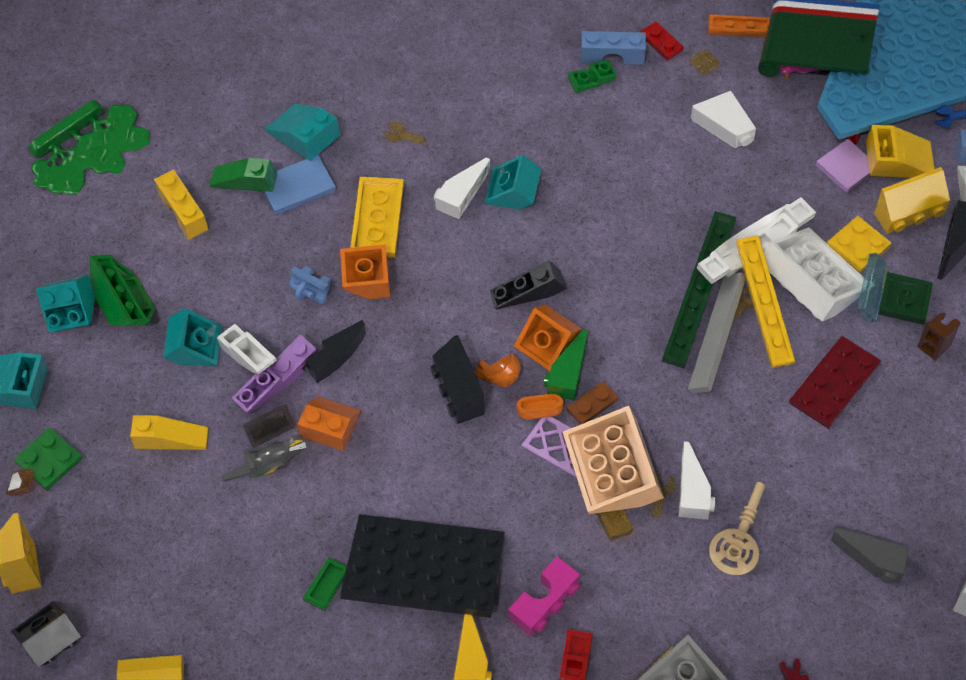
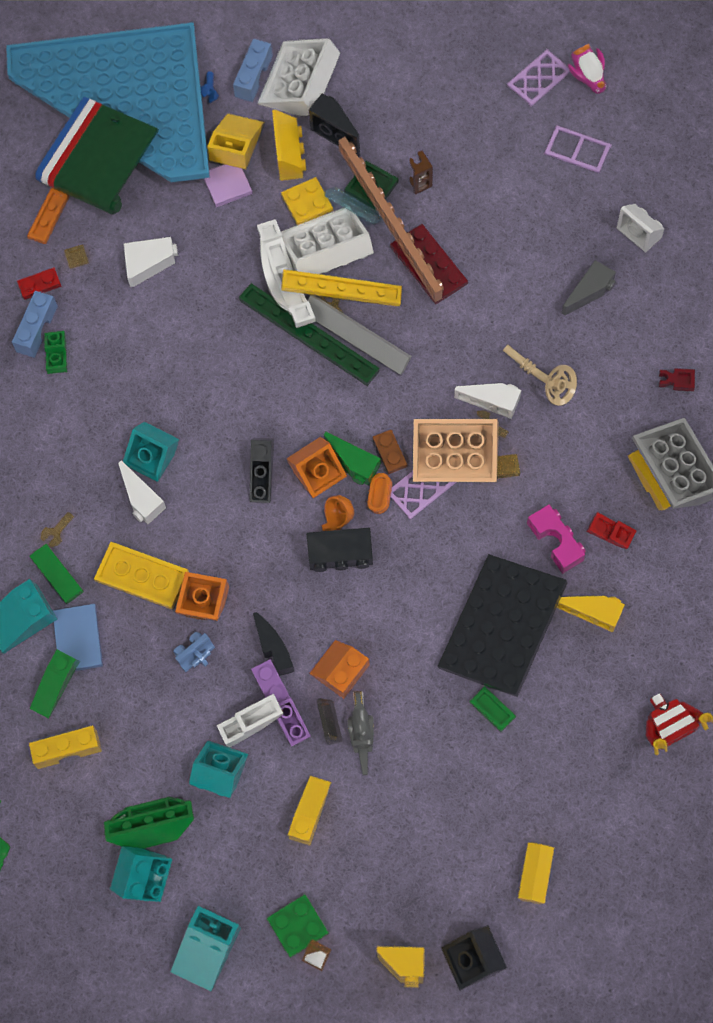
camera: 70 degrees left, 10 degrees up
(357, 147) = (56, 574): none -> green tile
(863, 325) = (393, 223): none -> nougat plate

